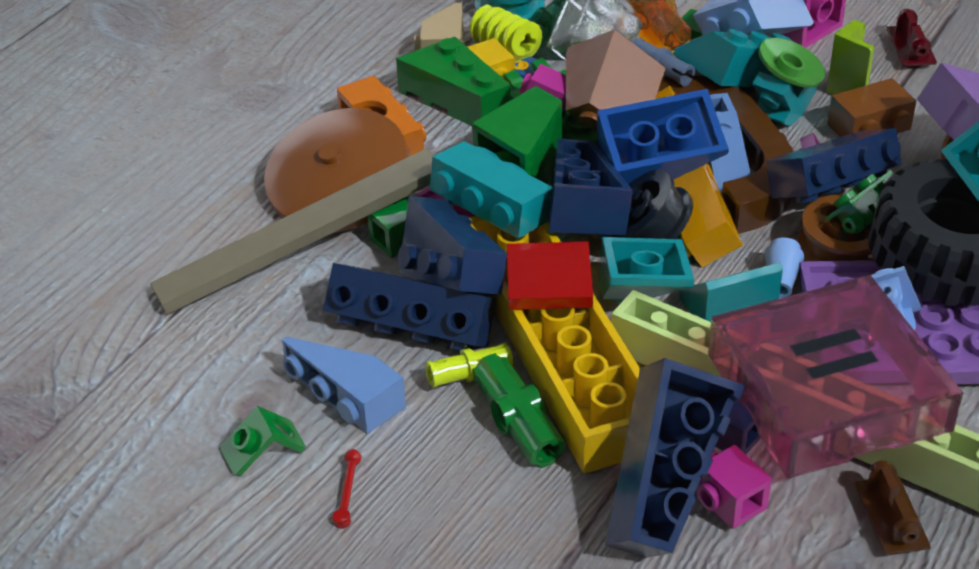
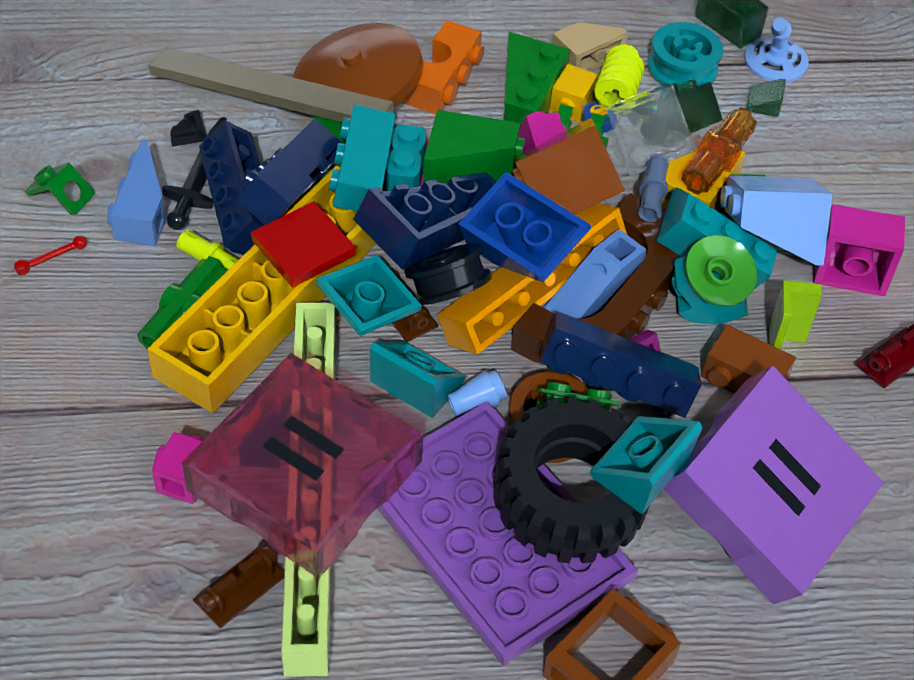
camera: 50 degrees right, 10 degrees up
(276, 317) = (188, 130): none -> black tile
(342, 333) = (189, 194): none -> black sword
(666, 453) = (164, 399): dark blue wedge -> none
(900, 291) = (436, 462): light blue hinge -> none

